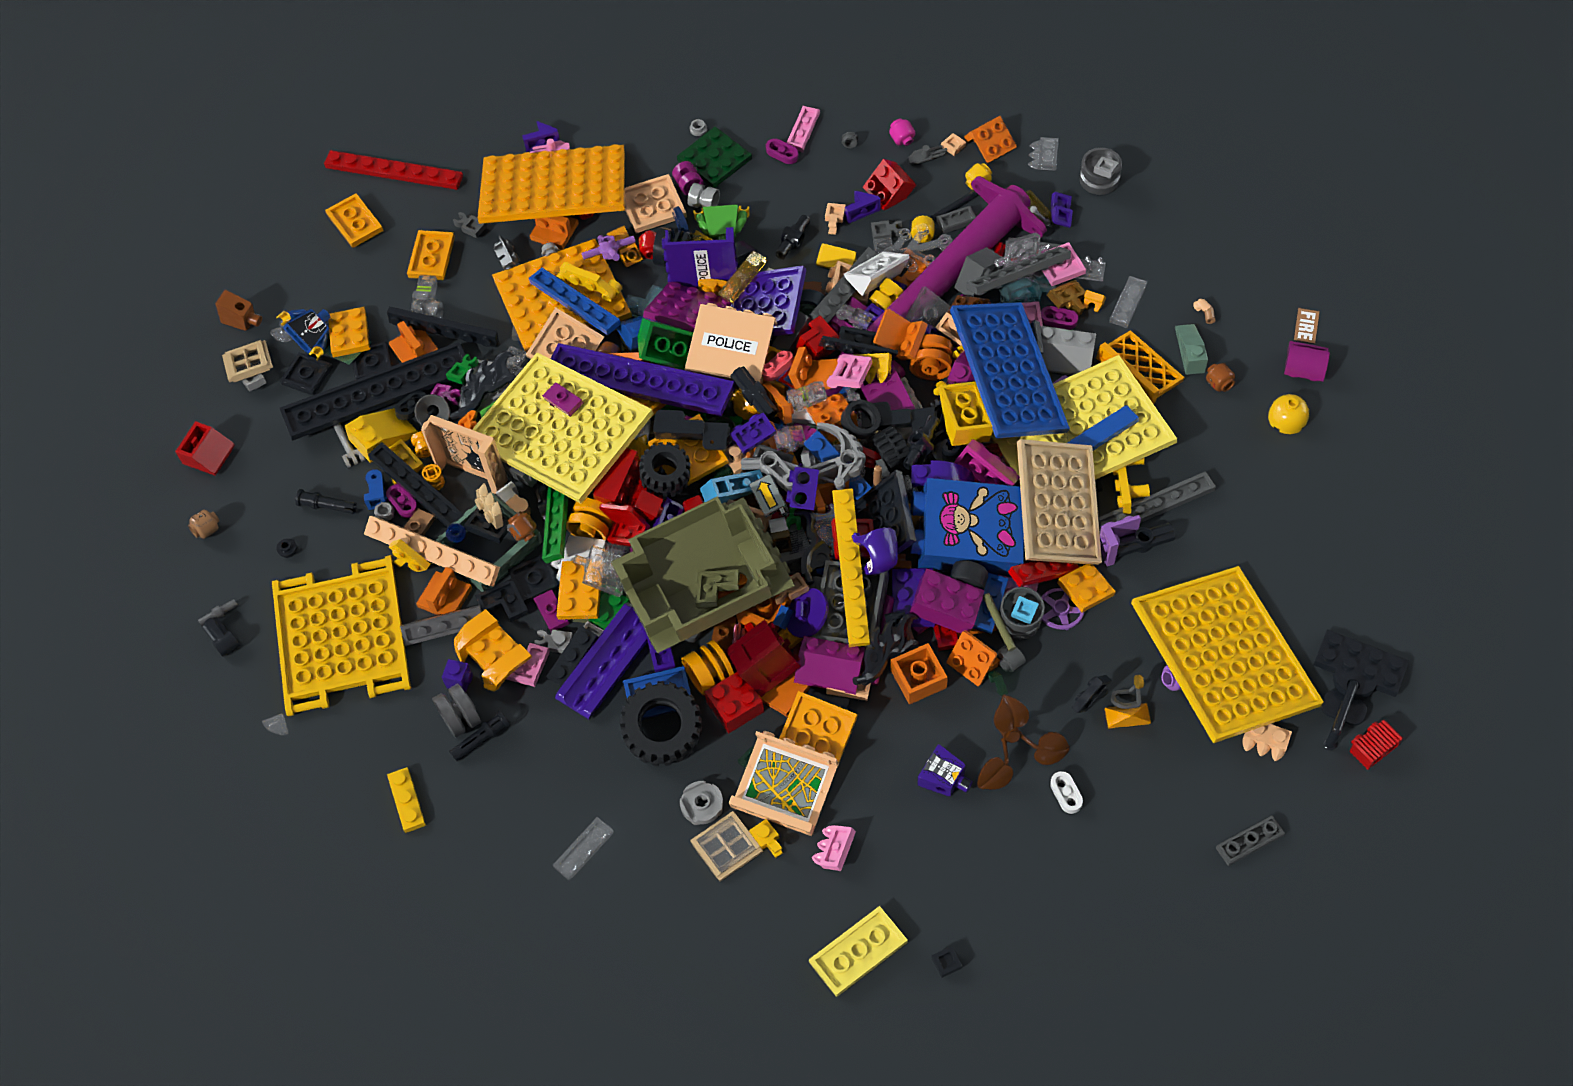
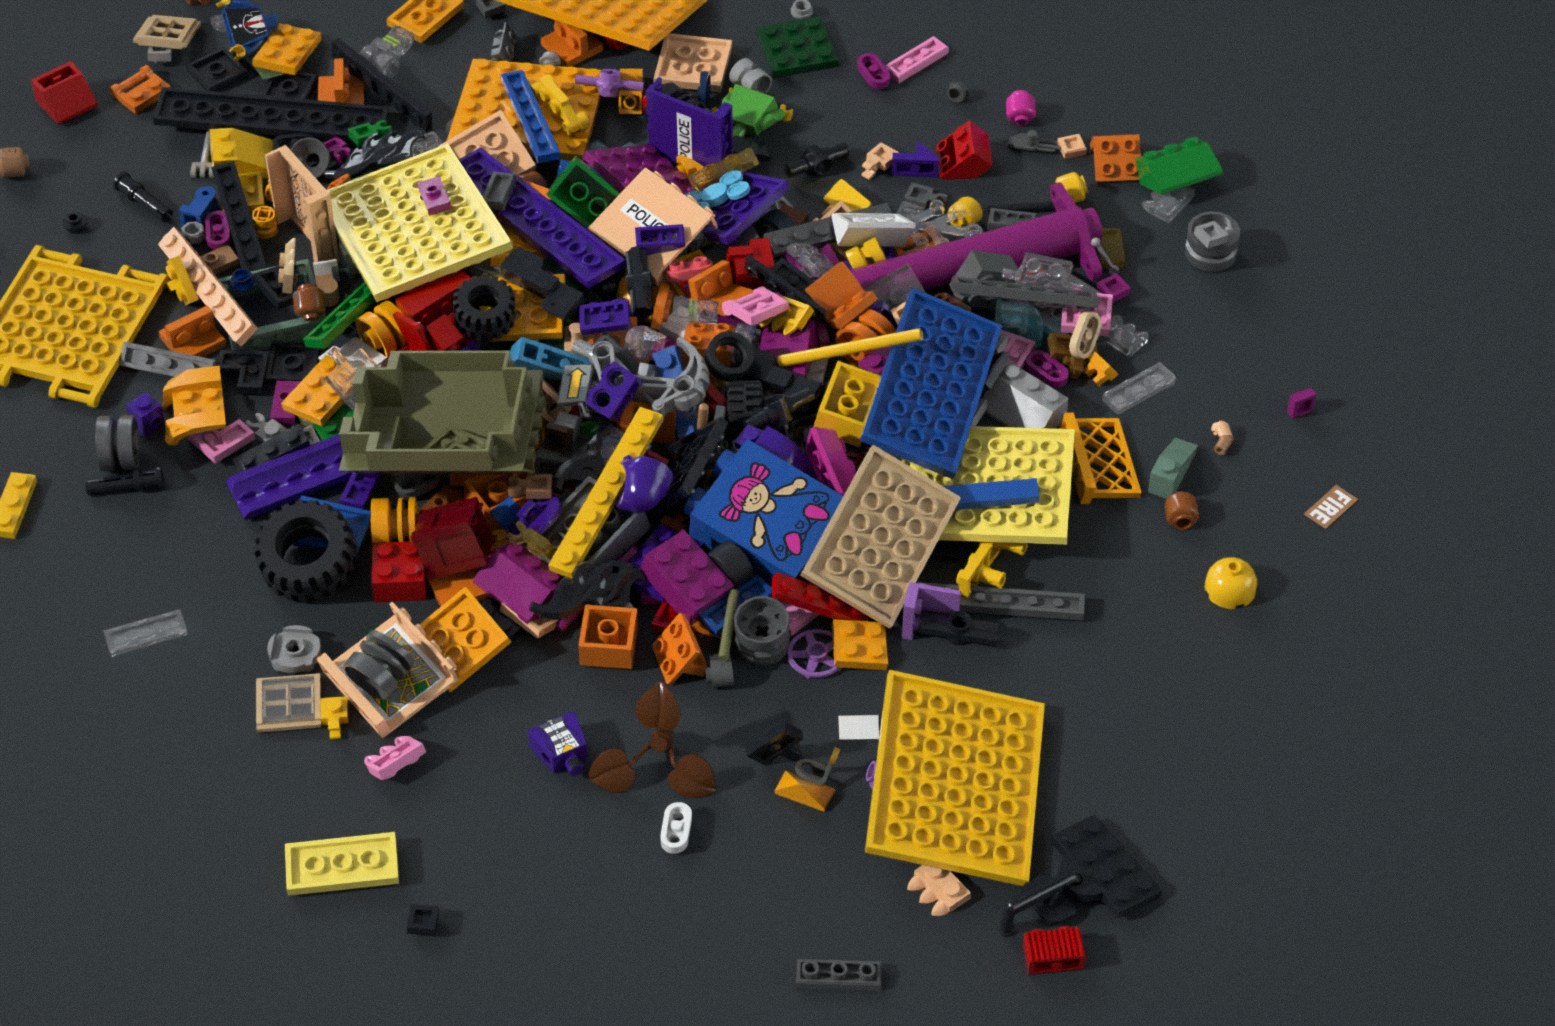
camera: 25 degrees right, 10 degrees down
(263, 420) = (143, 94): none -> orange plate
(600, 370) = (499, 190): none -> dark grey tile
(686, 175) = (749, 46): magenta wheel -> none
(736, 353) = (651, 232): none -> dark purple slope
(755, 298) = (730, 187): none -> medium azure piece
(782, 781) = (378, 665): none -> dark grey wheel
(828, 632) = (535, 542): none -> clear yellow plate
(940, 371) = (850, 347): none -> yellow piece
(999, 682) = (688, 690): clear green tile -> none
(1024, 610) = (762, 624): medium azure plate -> none
(1040, 127) = (1177, 166): none -> green slope
(1058, 235) = (1114, 285): none -> magenta plate
(1060, 209) = (1138, 262): dark purple slope -> none
(1075, 281) = (1085, 335): none -> tan plate
(1127, 648) = (858, 727): none -> white sticker
(1238, 260) = (1301, 403): none -> magenta plate
(1306, 361) = (1293, 538): magenta brick -> none

